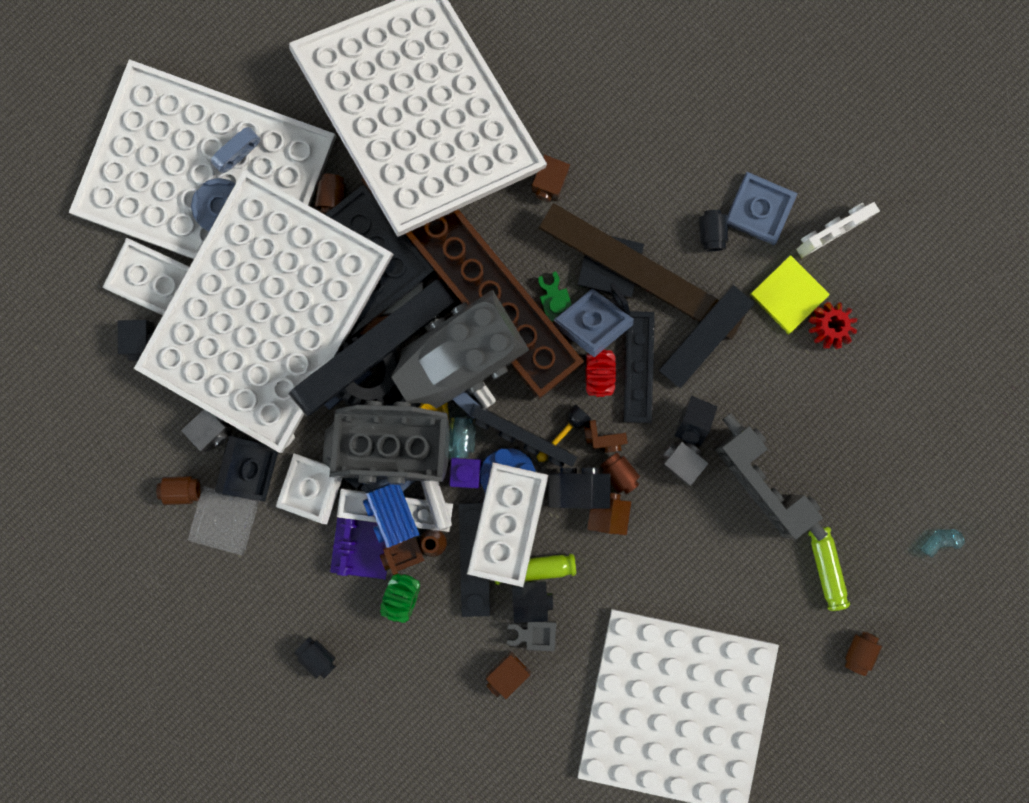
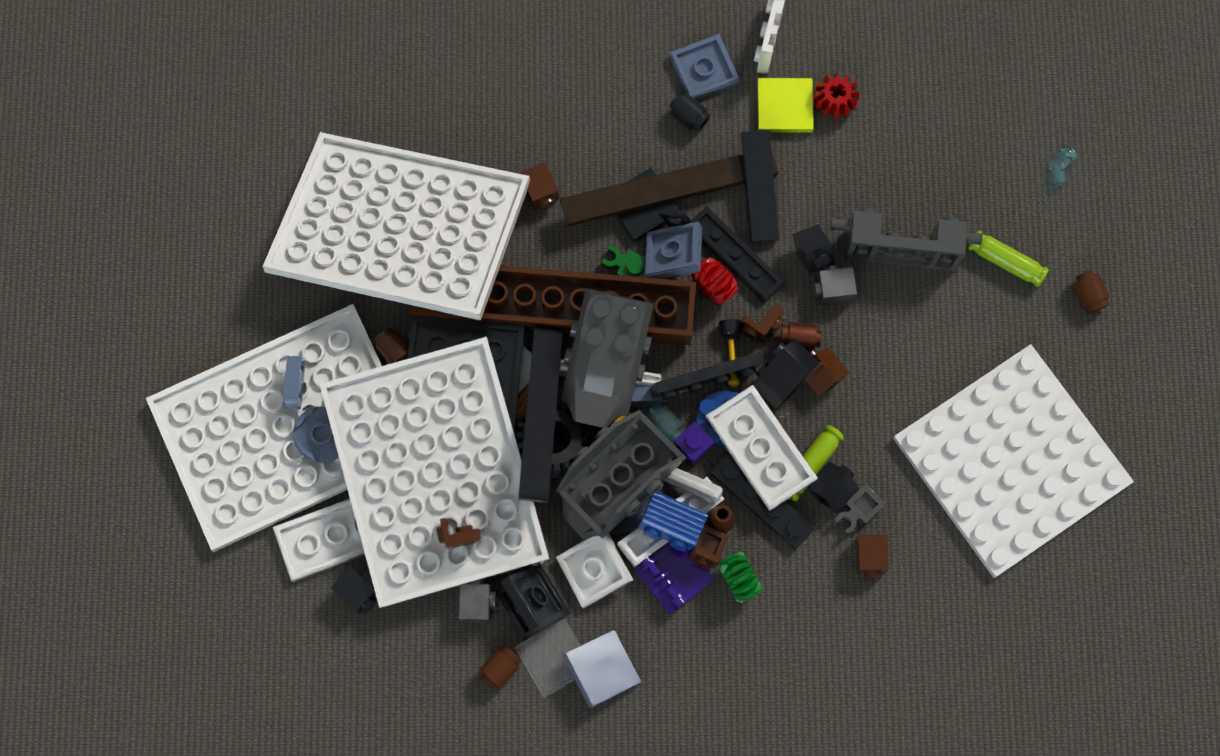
camera: 50 degrees left, 10 degrees down
(231, 378) = (464, 535): none -> reddish brown bracket
(244, 562) = (602, 669): none -> tile
(315, 658) = (724, 685): black brick -> none

